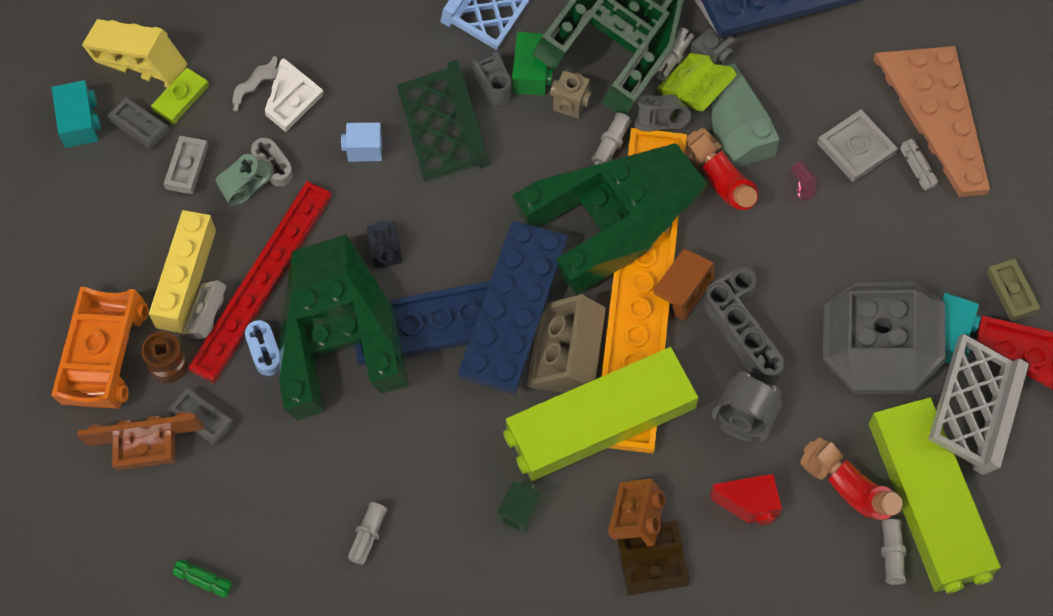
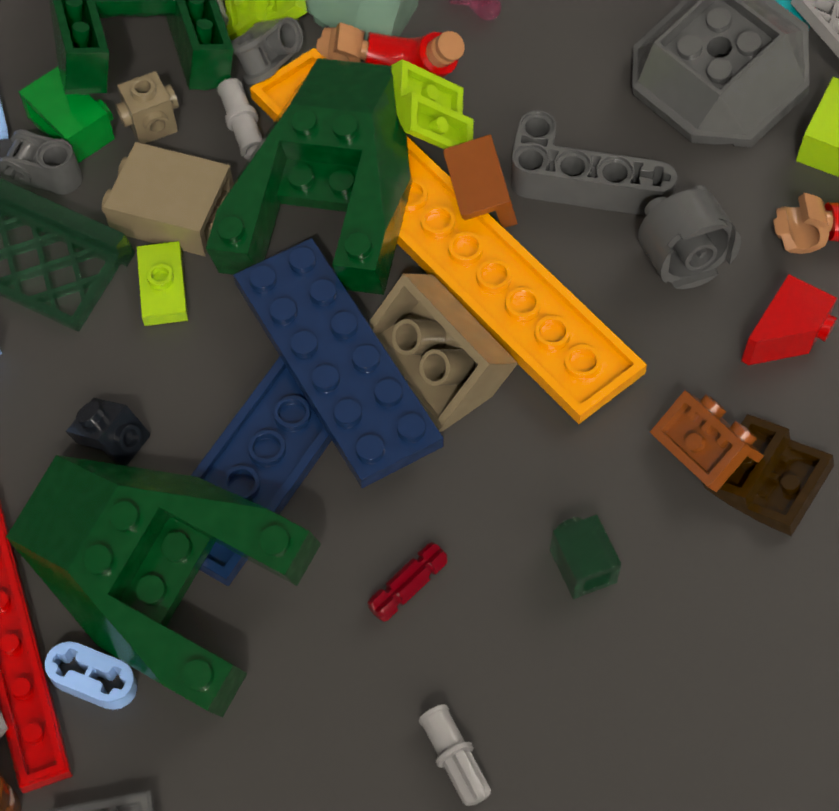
camera: 45 degrees left, 5 degrees down
(433, 440) = (407, 581): none -> dark red axle
(484, 192) = (162, 283): none -> lime plate
(529, 149) = (167, 197): none -> dark tan brick
(600, 414) = (558, 380): lime brick -> none
(702, 221) = (430, 106): none -> lime slope

